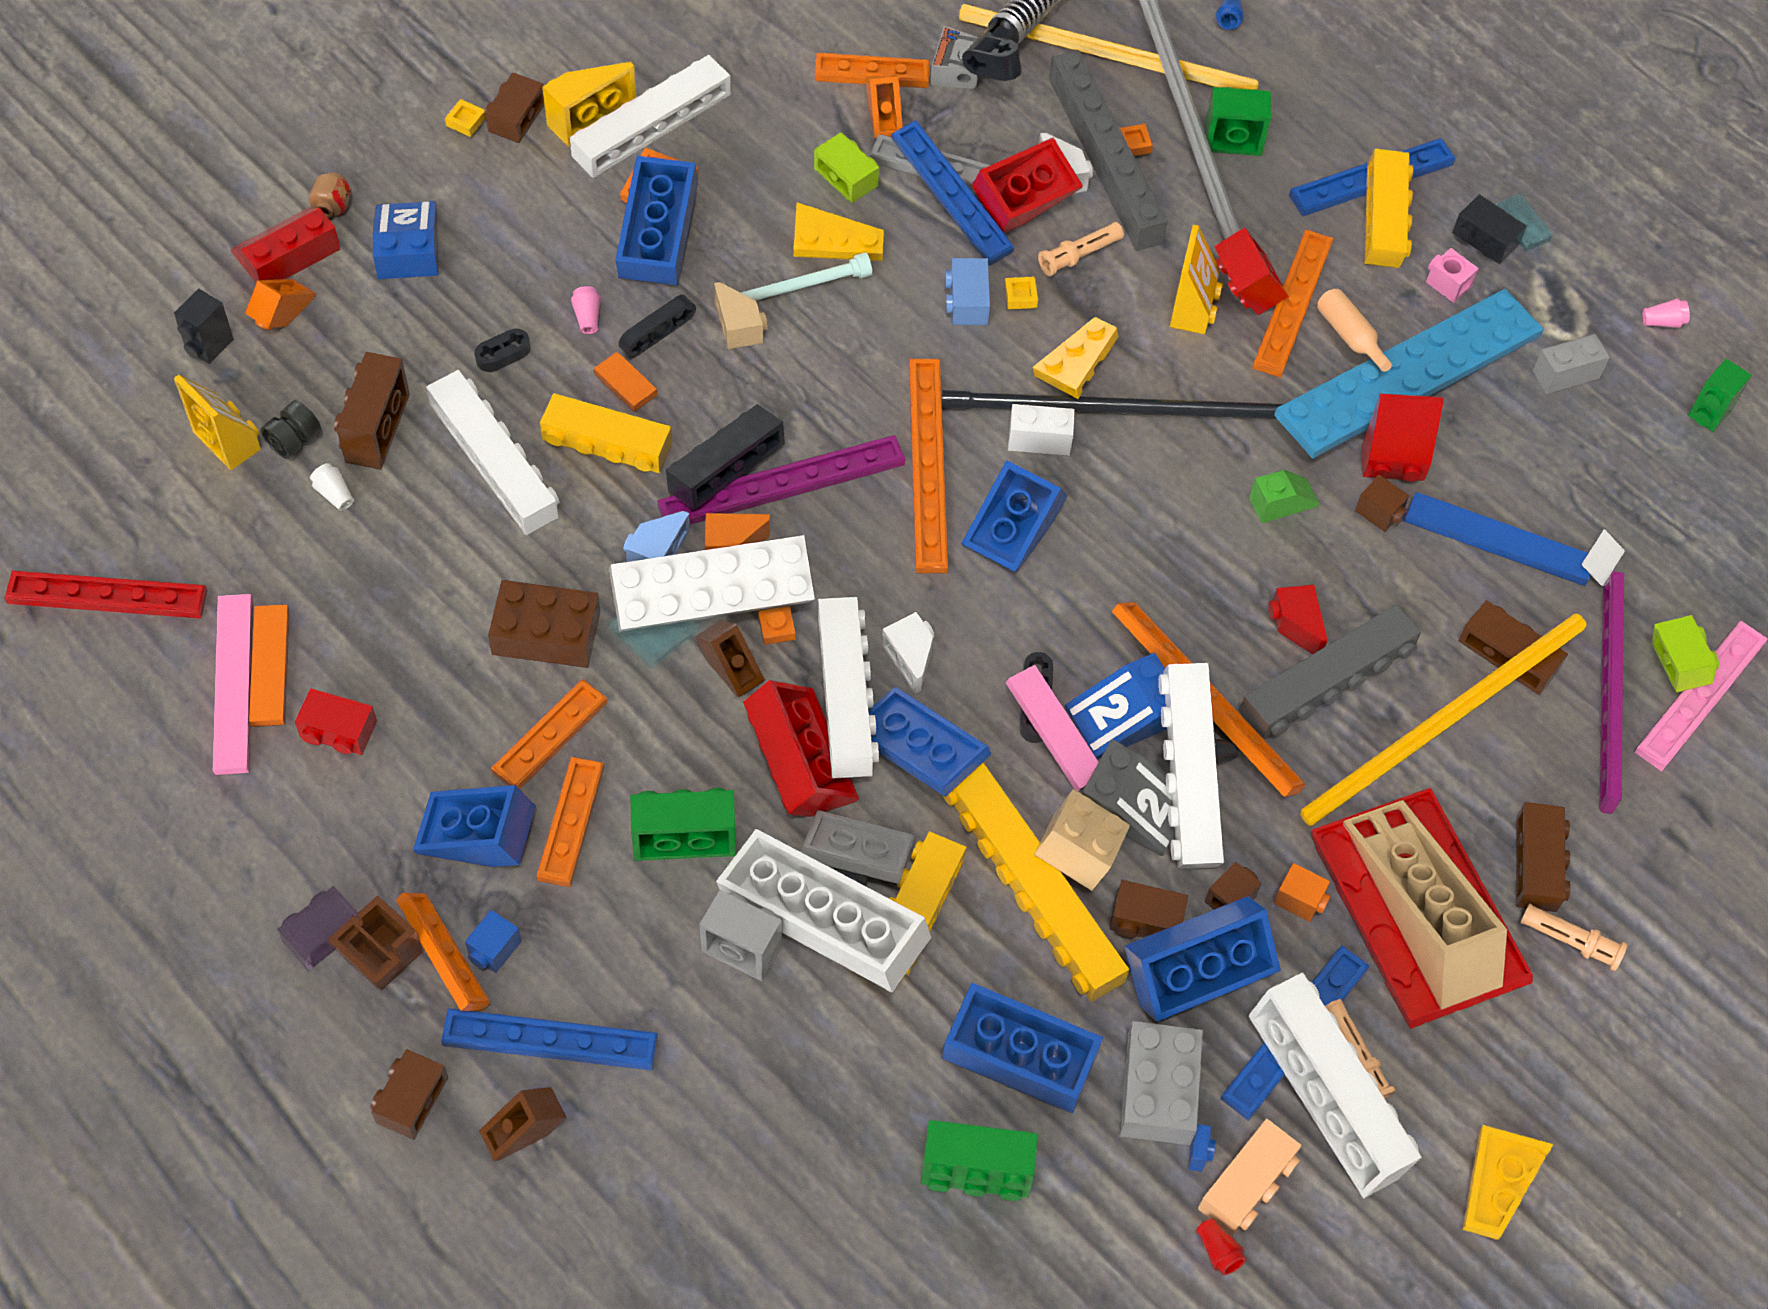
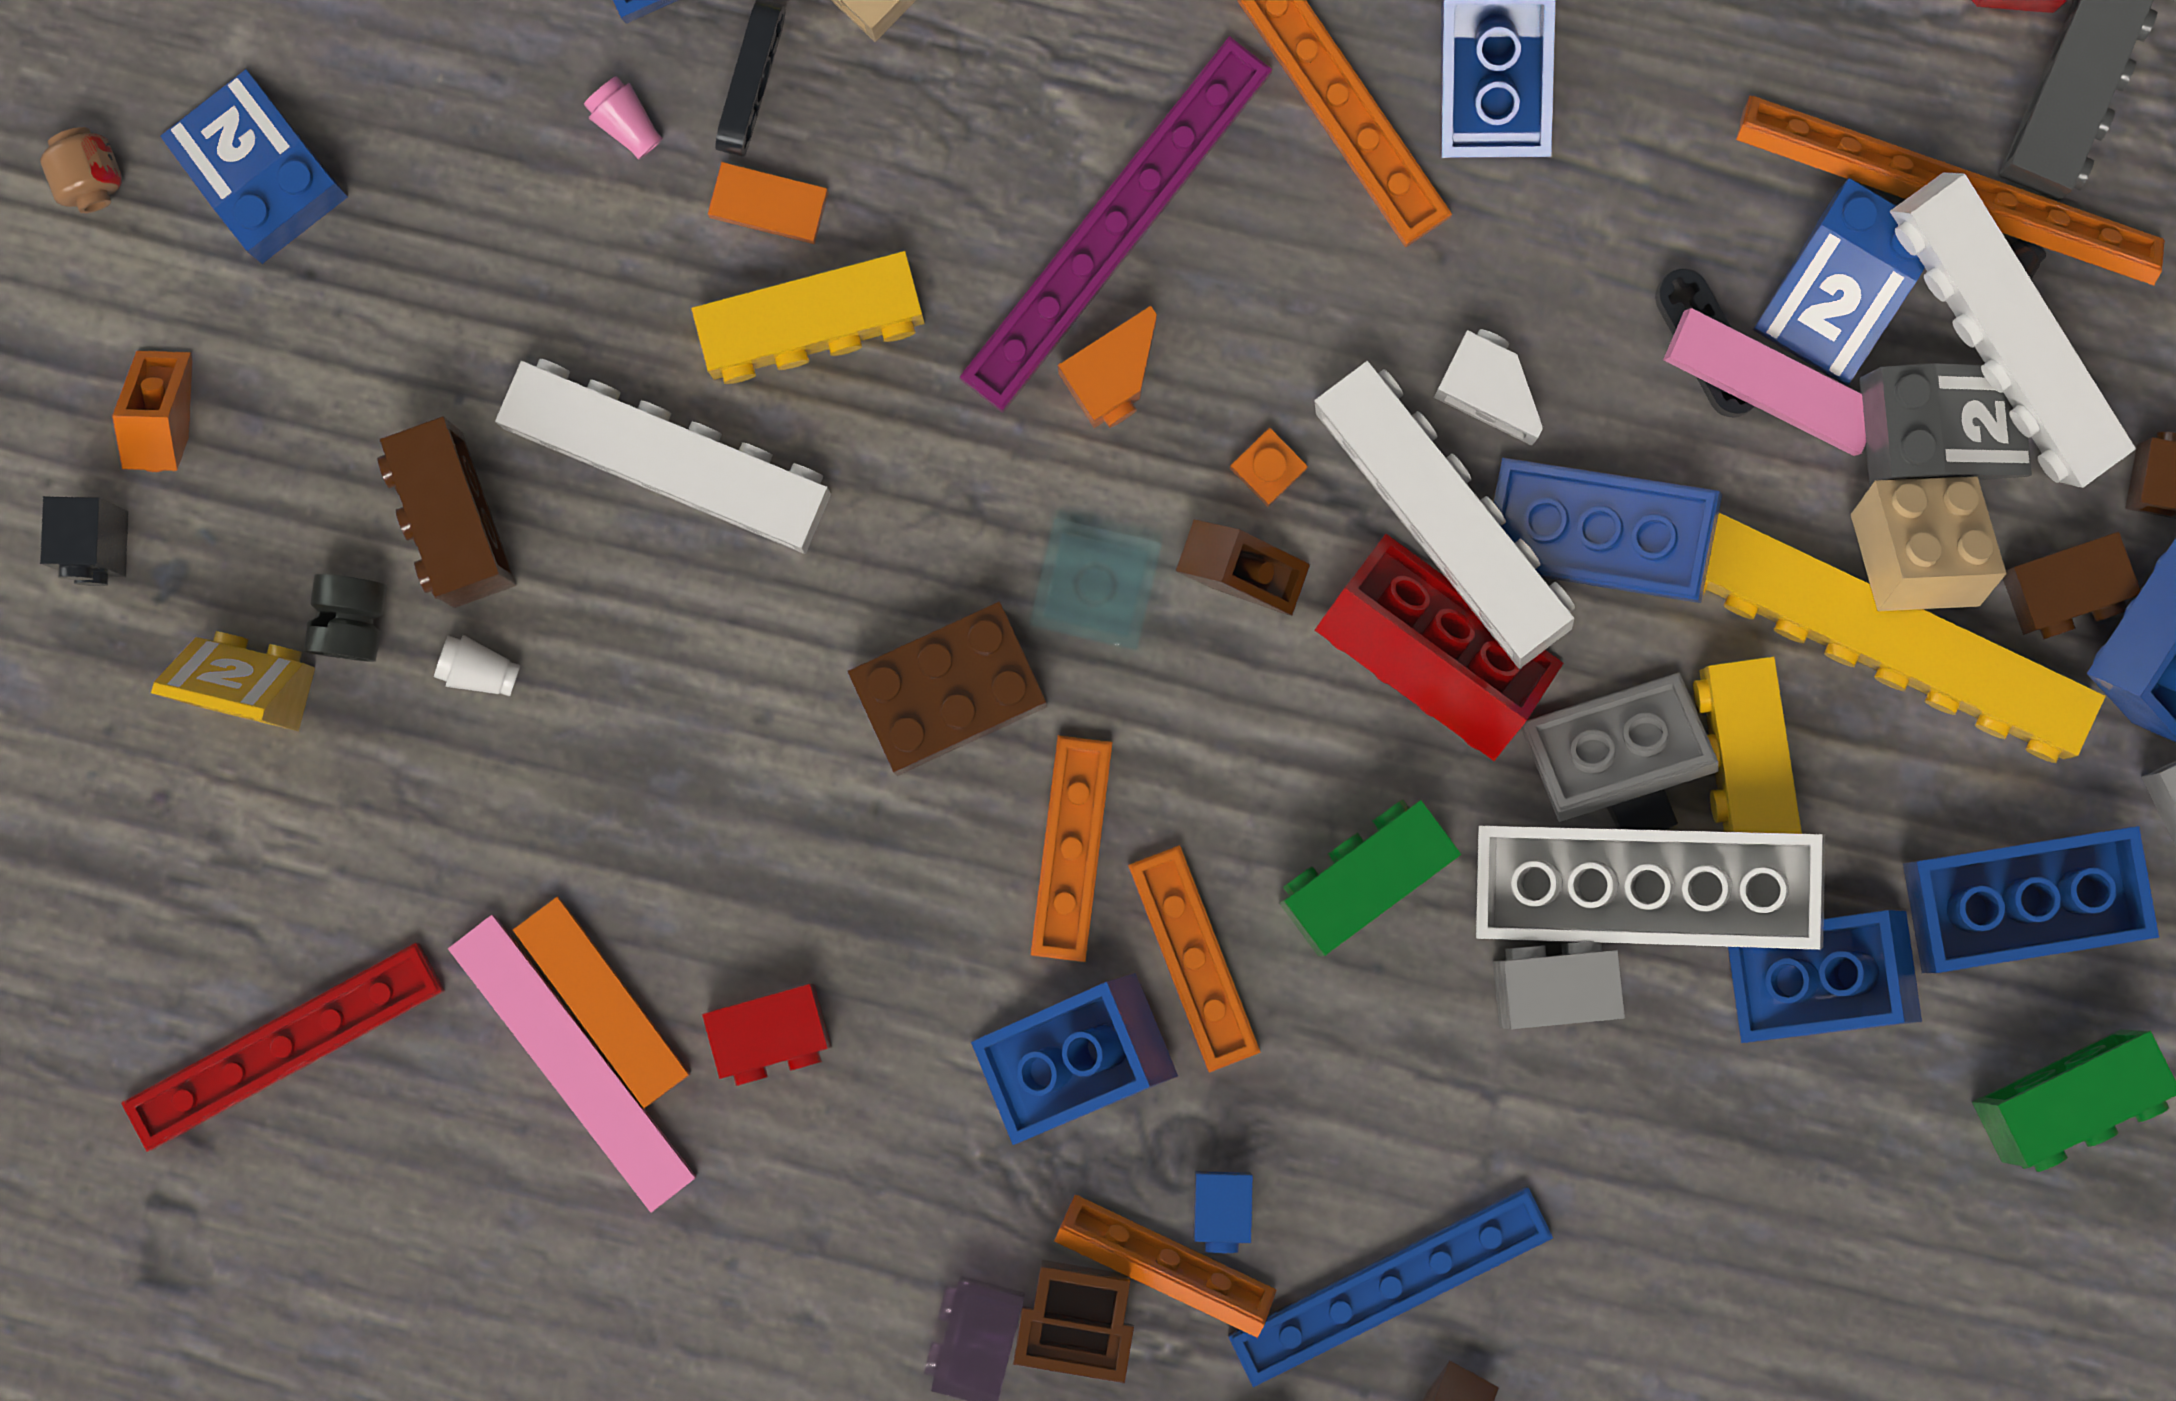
camera: 25 degrees left, 25 degrees up
(288, 246) = (83, 303): red slope -> none
(502, 350) = (535, 264): black beam -> none
(657, 537) = (1011, 454): light blue slope -> none
(711, 583) = (1148, 477): white brick -> none
(725, 456) = (1014, 245): black brick -> none
(889, 1027) = (1852, 983): none -> blue slope

